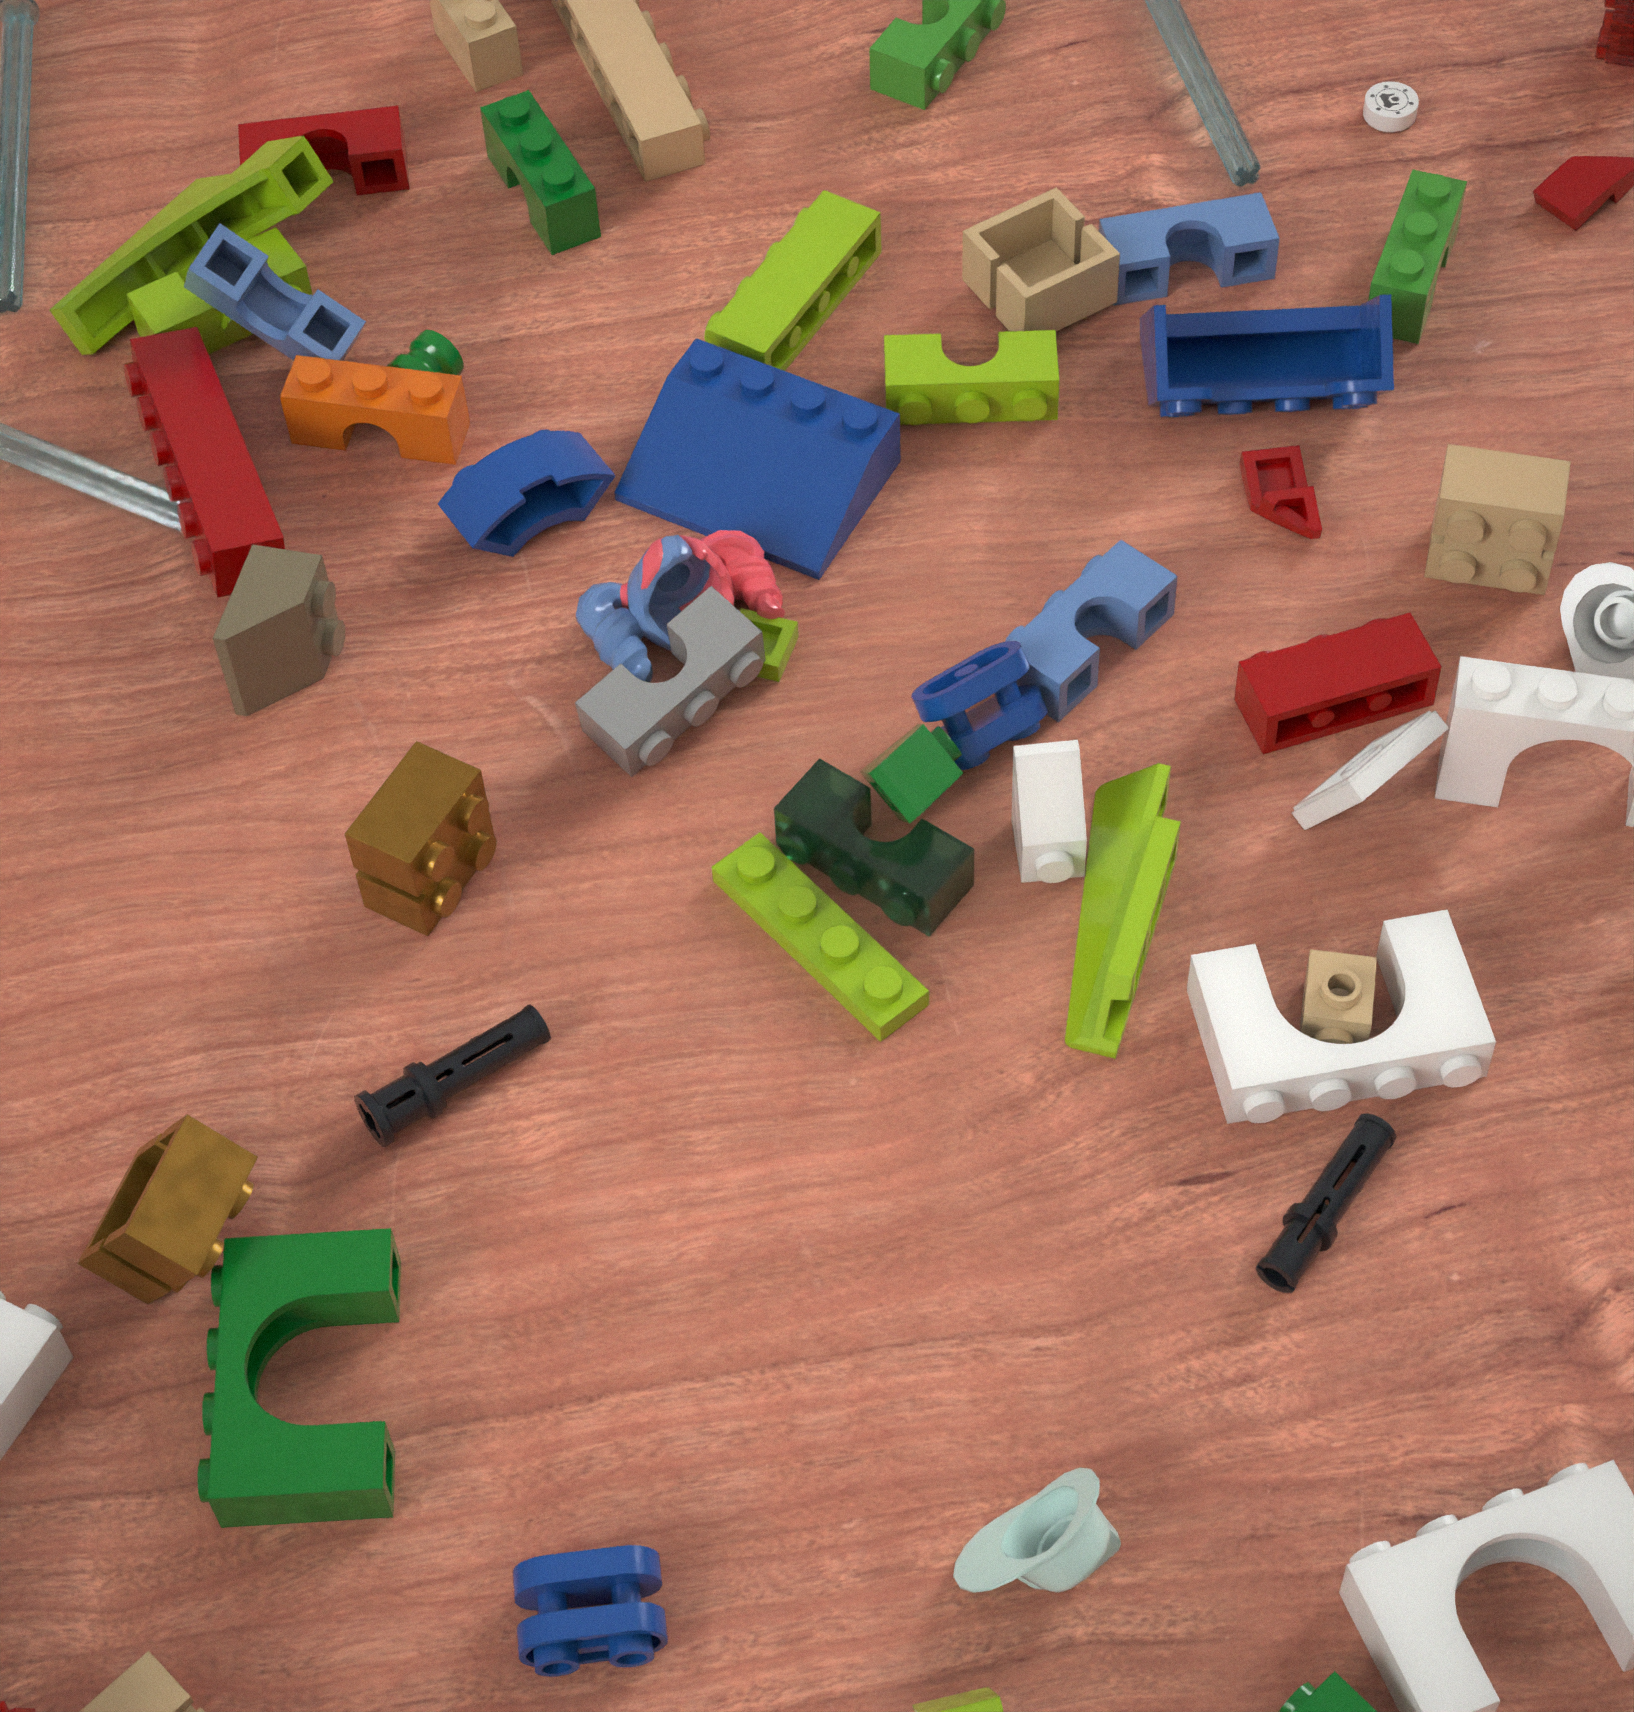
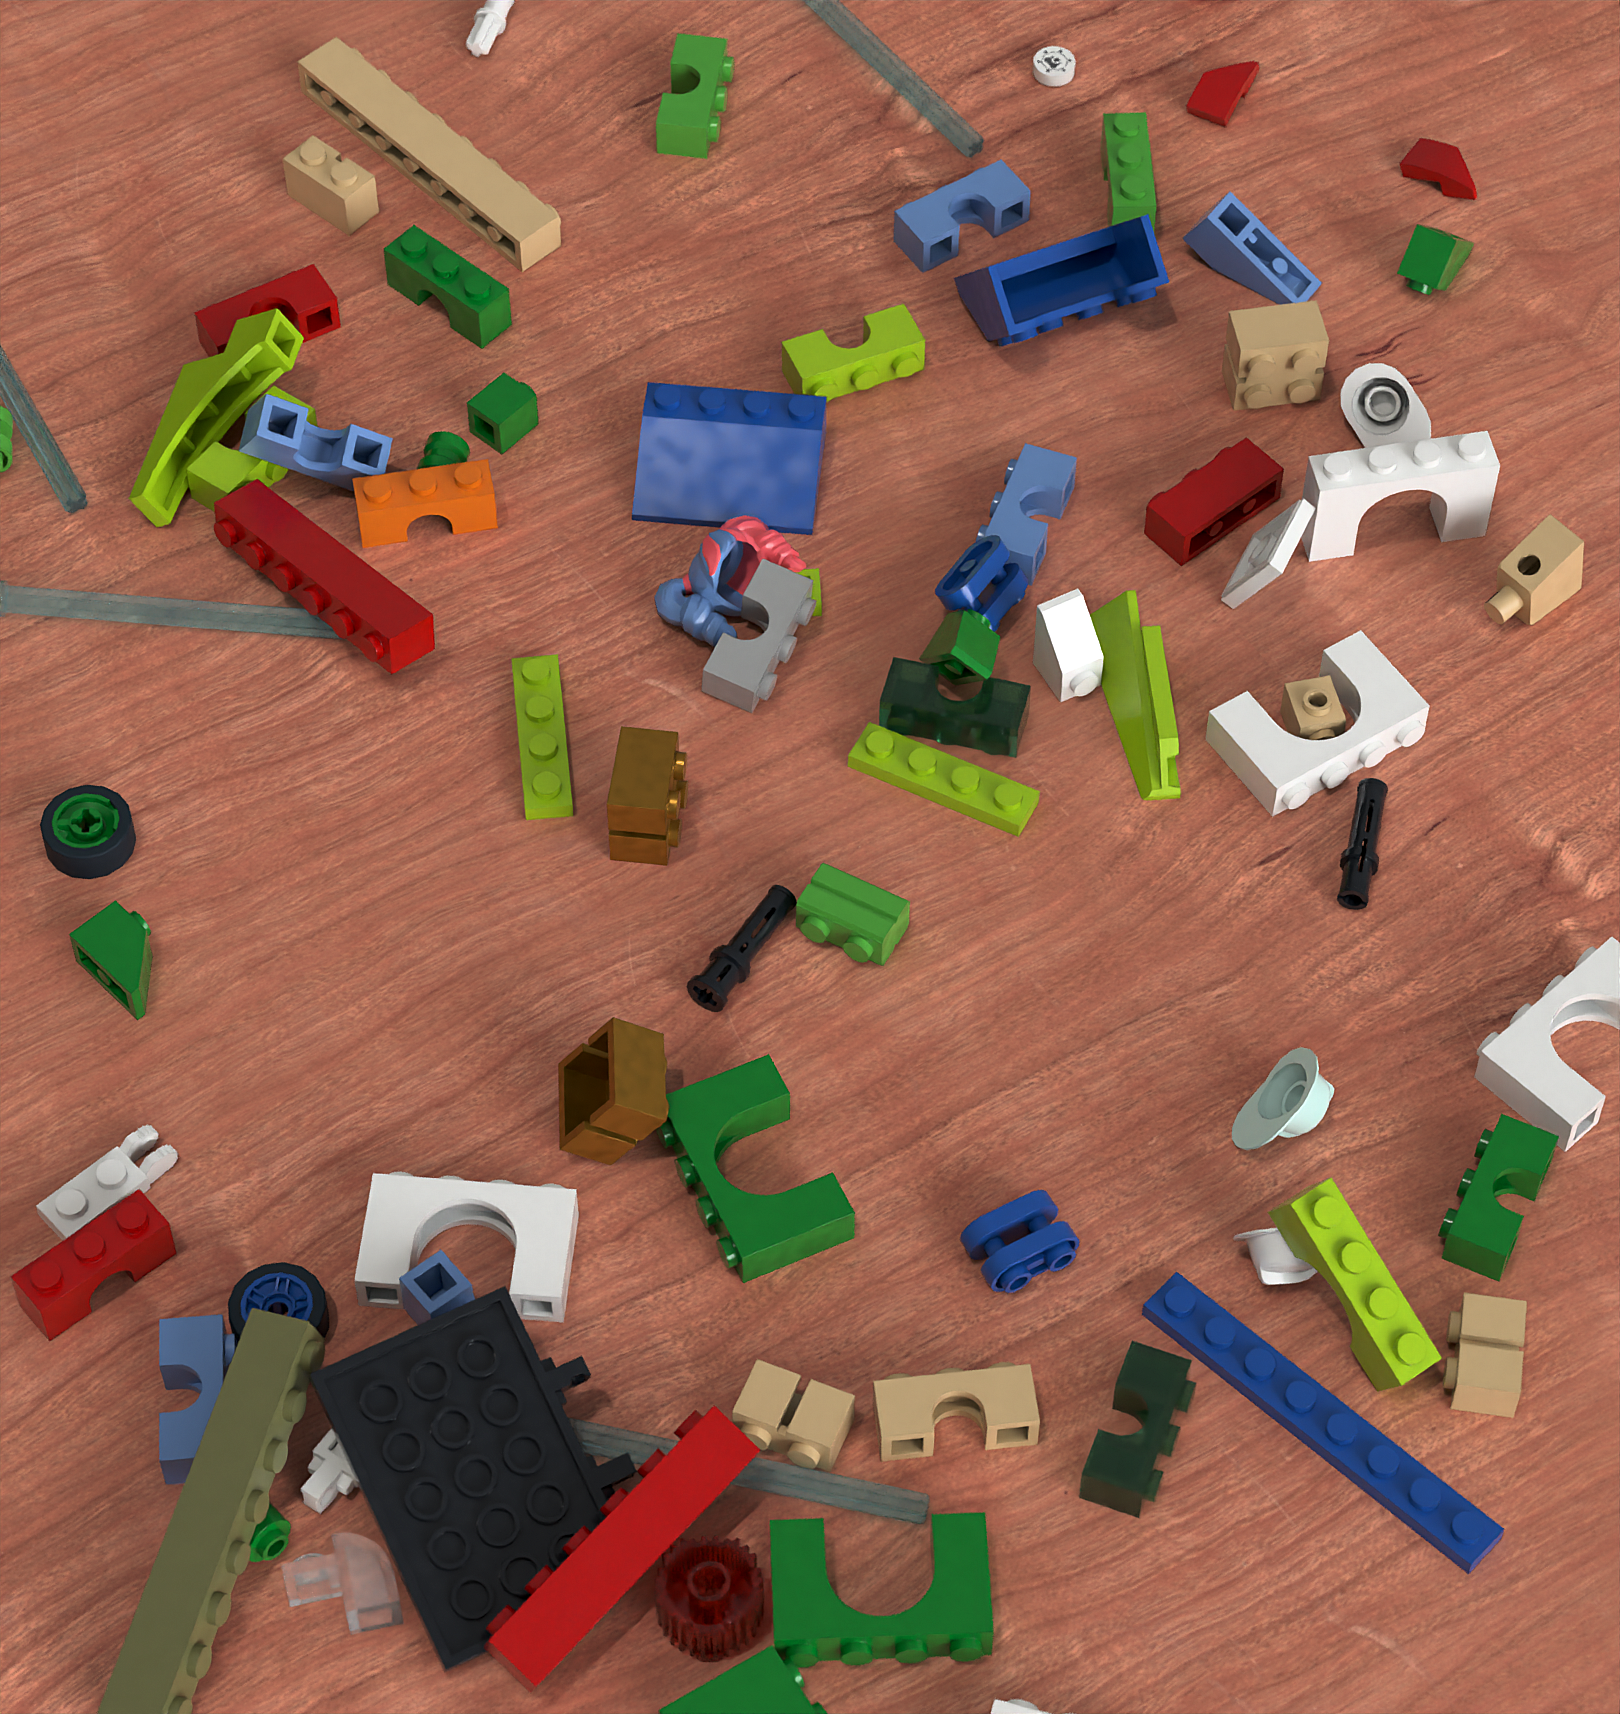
camera: 25 degrees left, 0 degrees up
(277, 628) = (456, 678): dark tan slope -> none
(362, 729) = (542, 737): none -> lime plate
(525, 331) = (503, 413): none -> green brick
(526, 490) = (574, 530): blue brick -> none
(606, 1076) = (852, 915): none -> bright green brick
(799, 282) = (689, 316): lime brick -> none
(1040, 265) = (855, 262): tan piece -> none
(1279, 489) = (1108, 377): red slope -> none
(1529, 386) = (1249, 253): none -> medium blue slope

